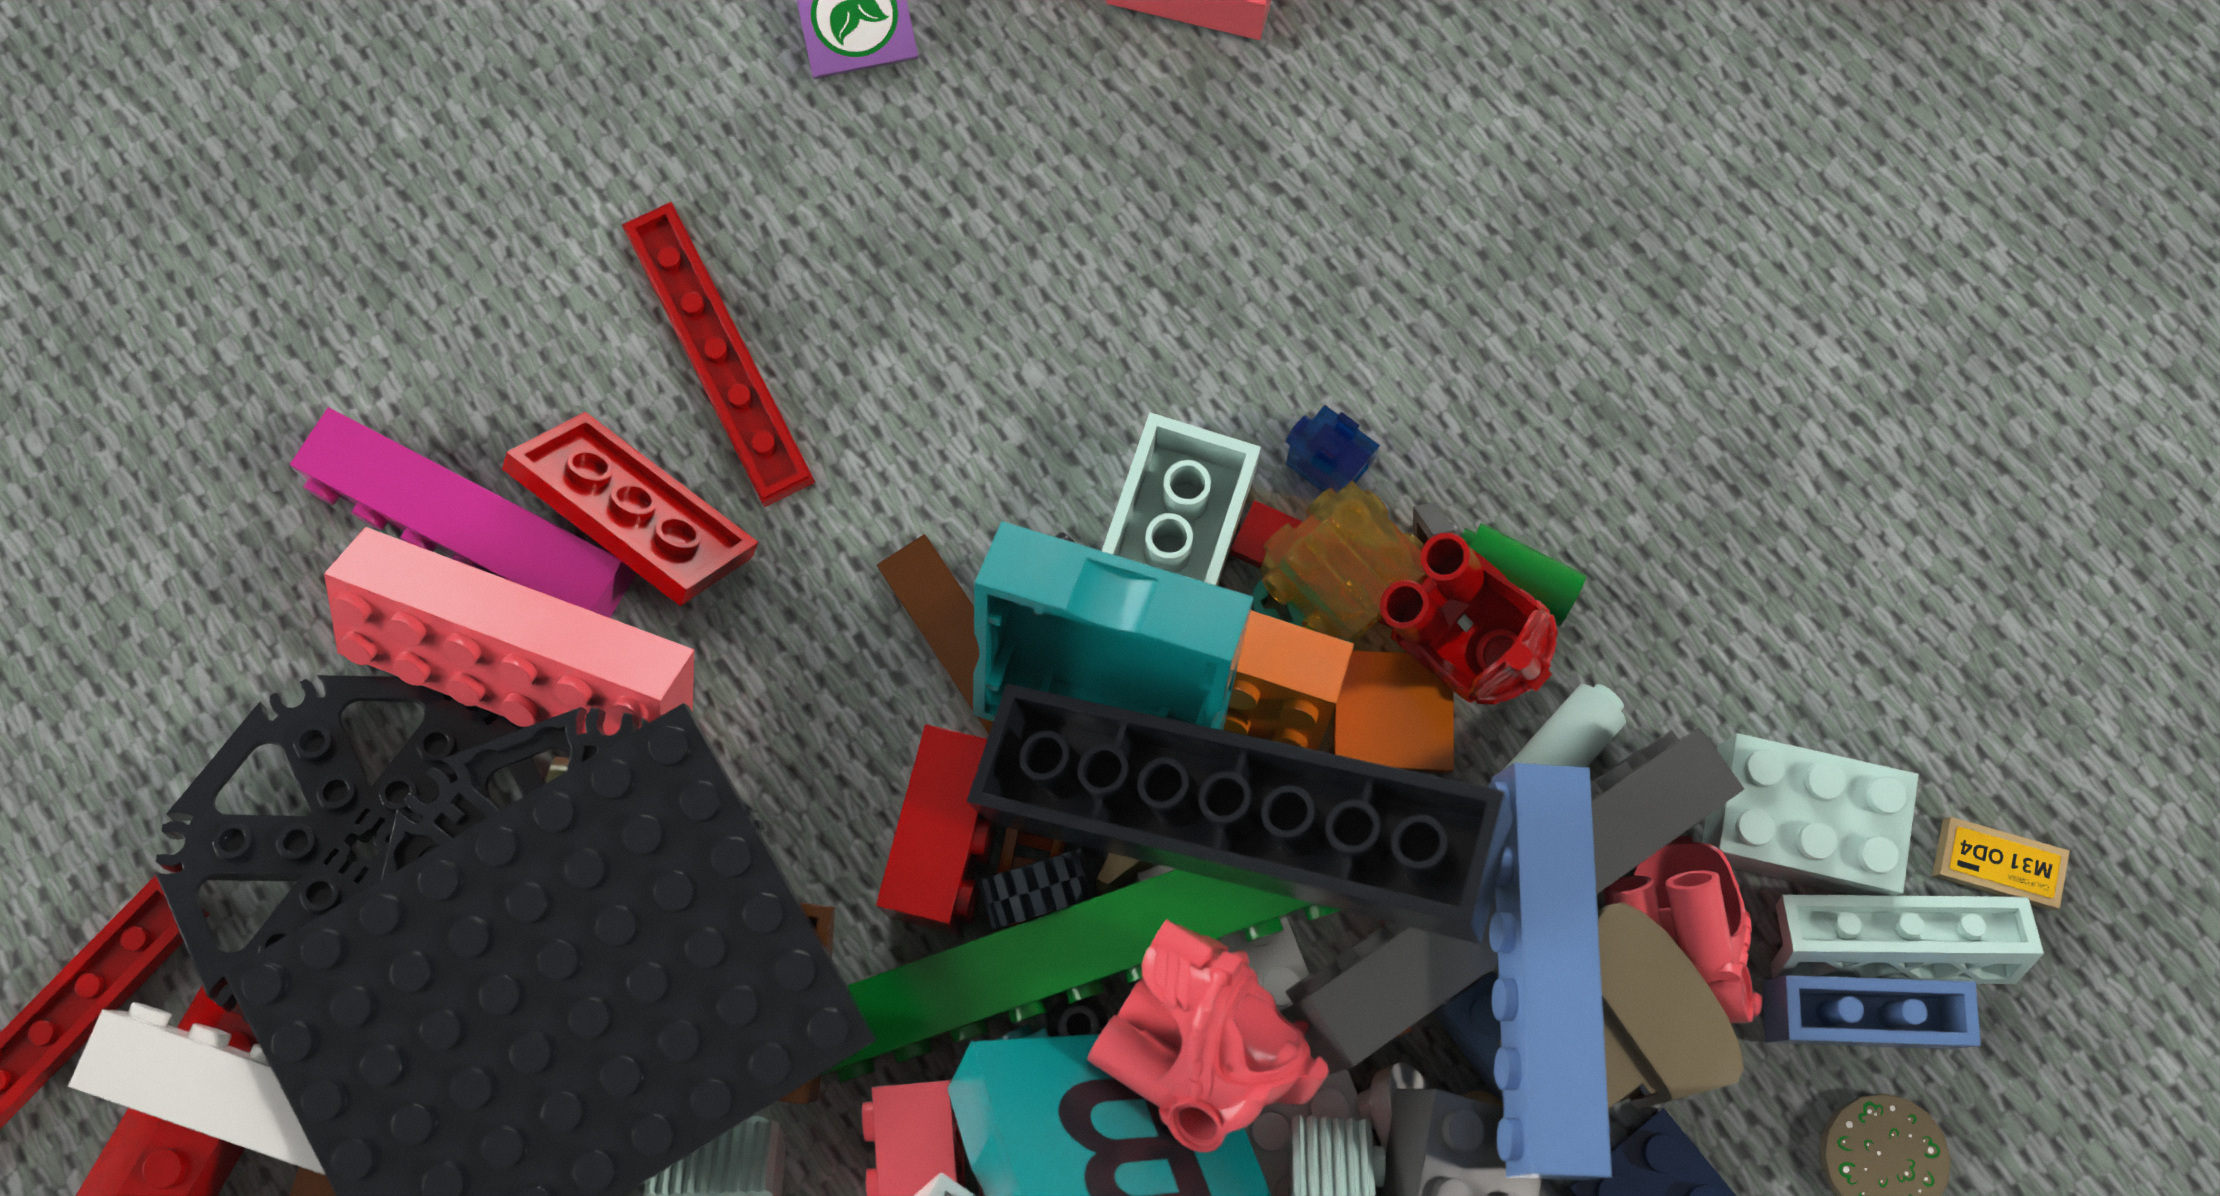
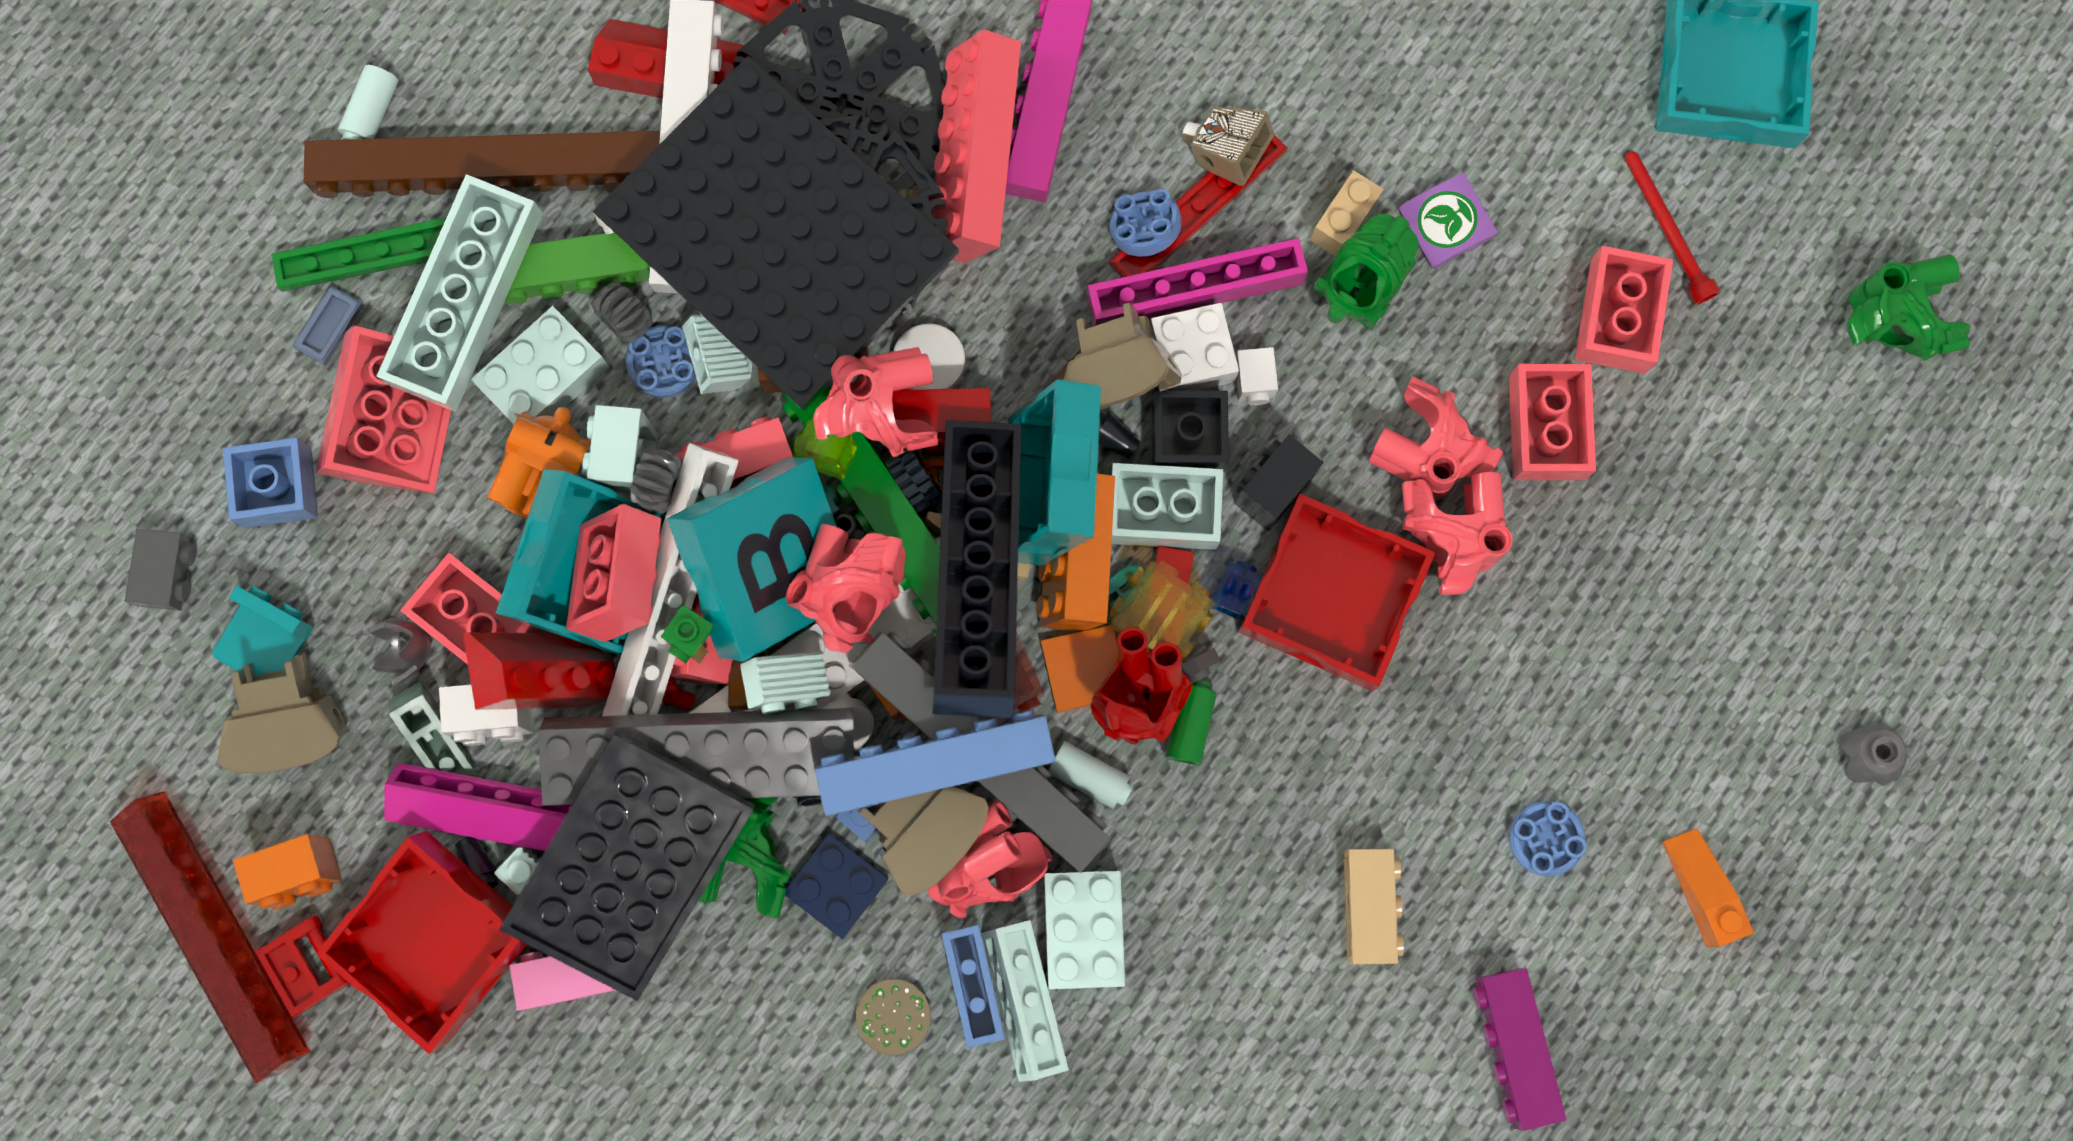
camera: 70 degrees right, 5 degrees up
(630, 507) = (1082, 186): red plate -> none
(635, 273) = (1230, 141): none -> dark tan torso
(720, 431) = (1145, 222): none -> medium blue tile
(802, 144) = (1346, 212): none -> tan brick
(834, 821) = (943, 350): none -> white tile
(843, 383) = (1200, 282): none -> dark pink brick
(896, 924) = (867, 401): none -> coral helmet
(901, 127) = (1369, 270): none -> green helmet
(939, 516) = (1122, 359): none -> dark tan piece
(942, 414) = (1199, 346): none -> white brick
(946, 1020) = (830, 455): none -> clear neon green brick
(1008, 337) = (1256, 375): none -> white brick
(1069, 450) = (1190, 429): none -> black brick
(1187, 343) = (1275, 486): none -> black brick
(1200, 102) = (1447, 451): none -> coral helmet
(1347, 111) = (1461, 542): none -> coral helmet
(1370, 310) = (1336, 592): none -> red tile
(1787, 136) = (1547, 838): none -> medium blue tile
(1847, 392) = (1372, 906): none -> tan brick
(2000, 863) = (1090, 1059): tile -> none
(2086, 250) = (1520, 1049): none -> magenta brick

